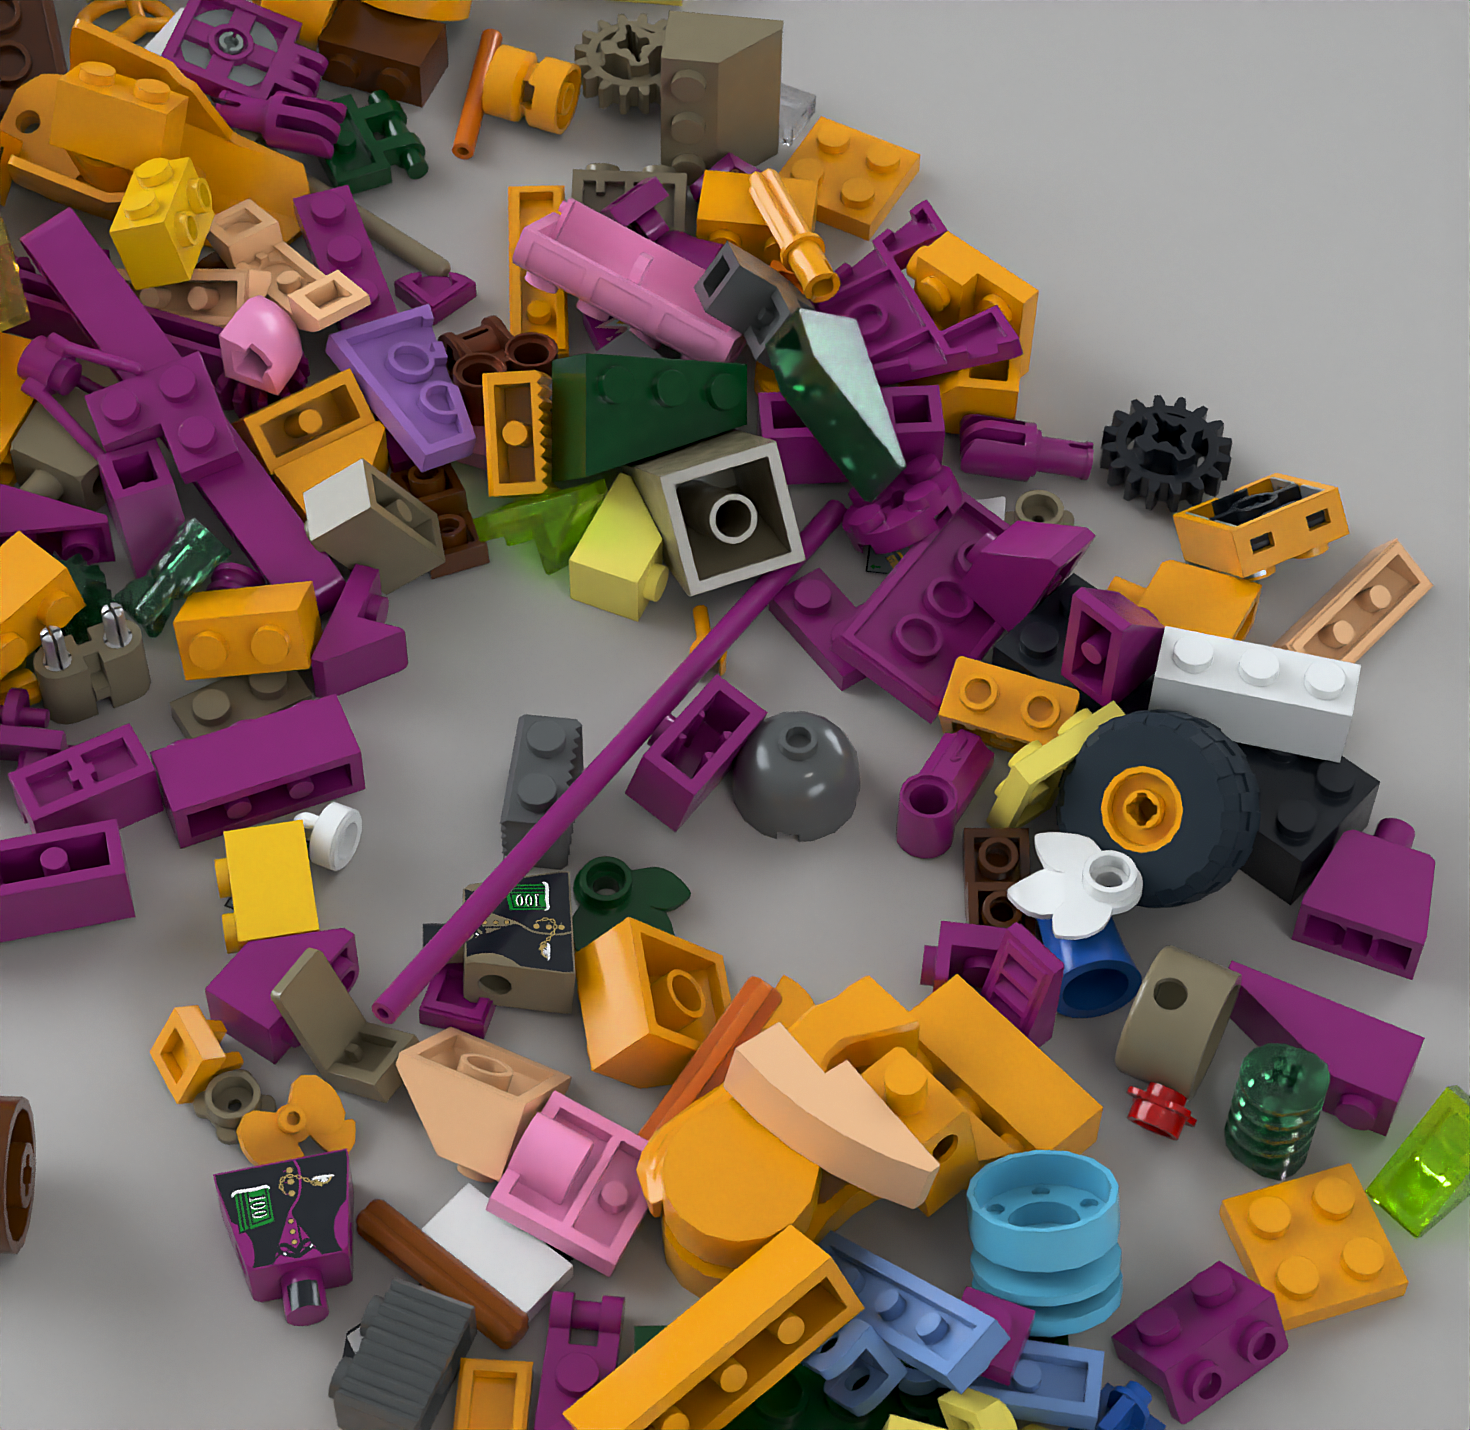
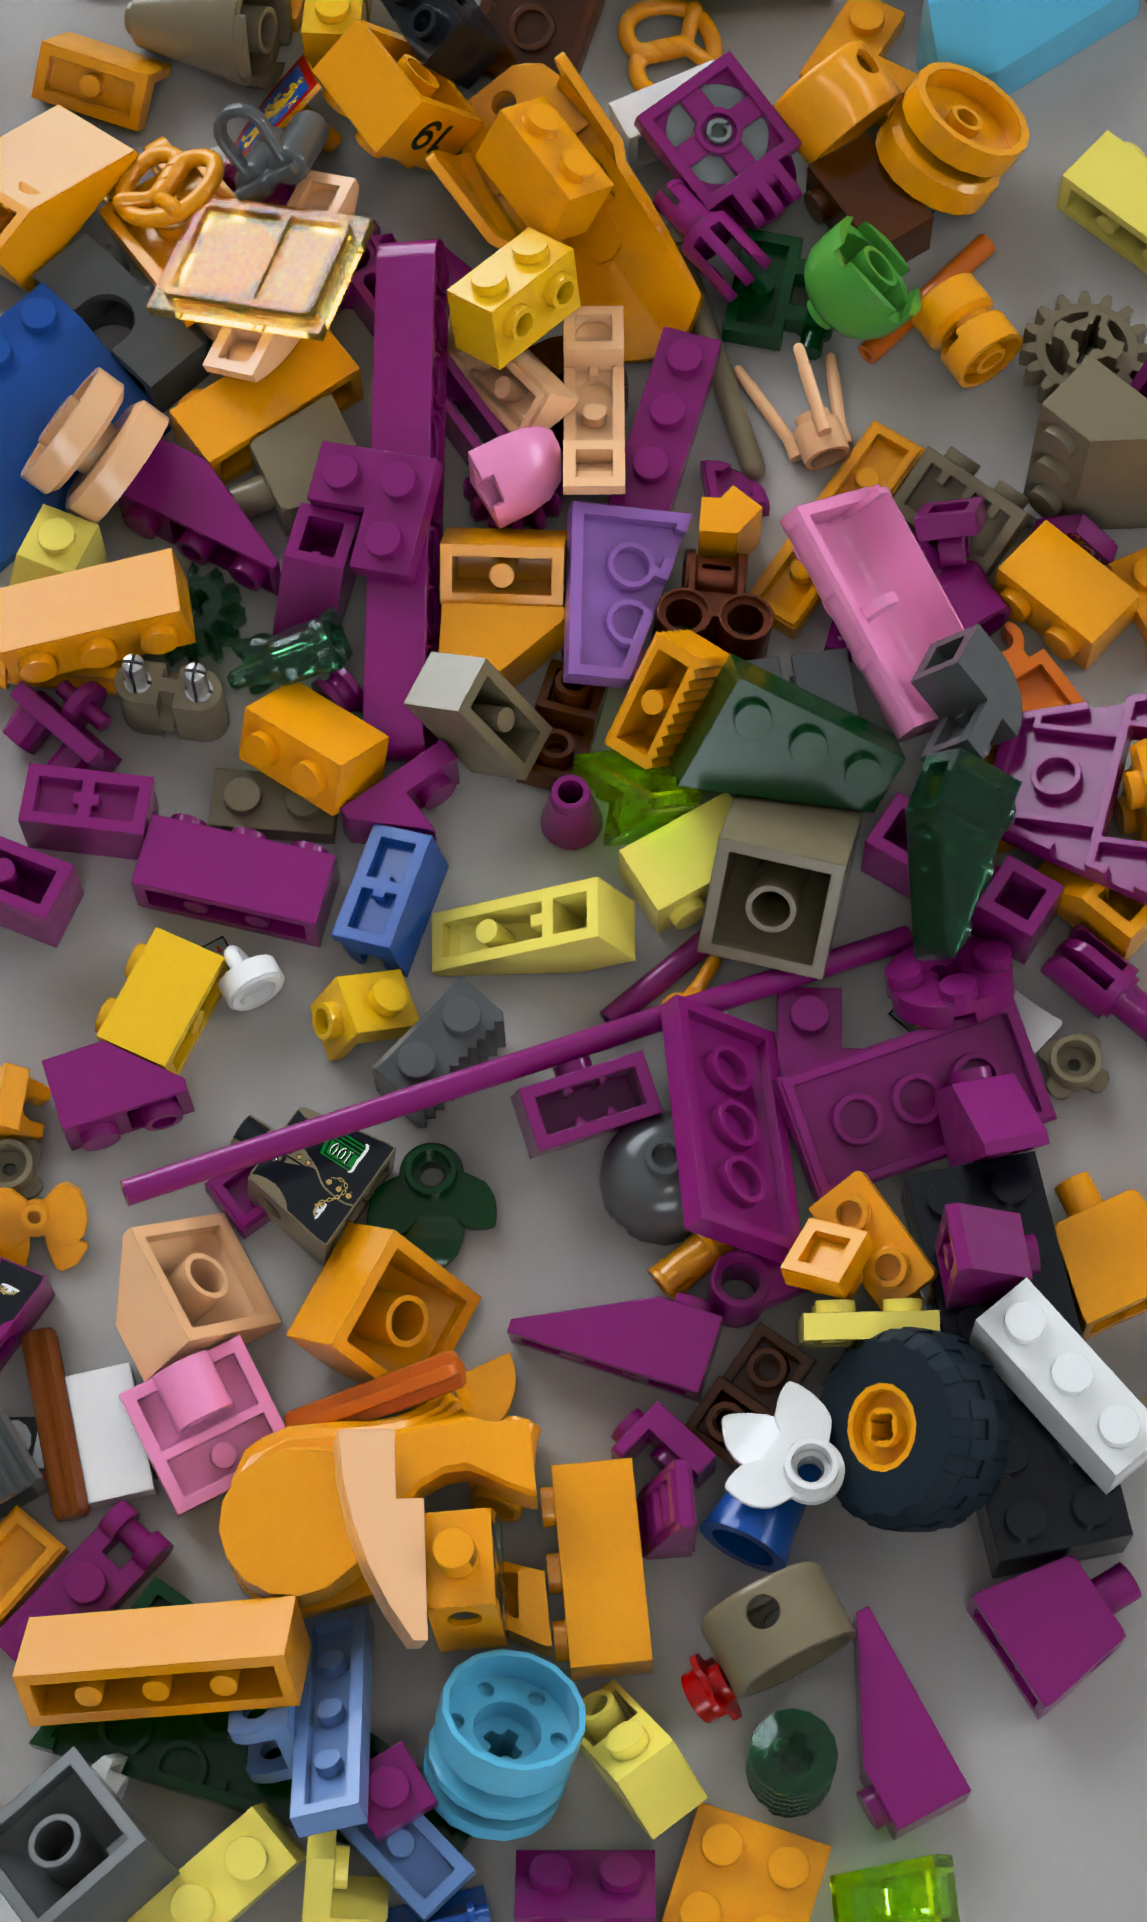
camera: 40 degrees right, 15 degrees up
(52, 368) = (327, 393): magenta plant -> none
(334, 1033) = (113, 1151): dark tan bracket -> none
(402, 705) = (391, 897): none -> blue hinge
(427, 90) = (858, 283): none -> bright green cylinder
(444, 804) = (362, 1011): none -> yellow bracket
(457, 300) = (729, 525): none -> light orange piece
(472, 212) = (820, 436): none -> light nougat plant
(501, 565) = (571, 814): none -> magenta cone
(544, 664) = (537, 932): none -> light yellow slope
(669, 640) = (656, 980): none -> magenta piece
(800, 248) = (1054, 666): light orange axle -> none
(832, 695) = (729, 1130): none -> magenta plate
(872, 811) = (687, 1264): none -> light orange pin
(883, 899) = (639, 1340): none -> magenta slope
(991, 727) = (828, 1259): none -> light orange tile
(1167, 1198) = (638, 1760): none -> light yellow slope

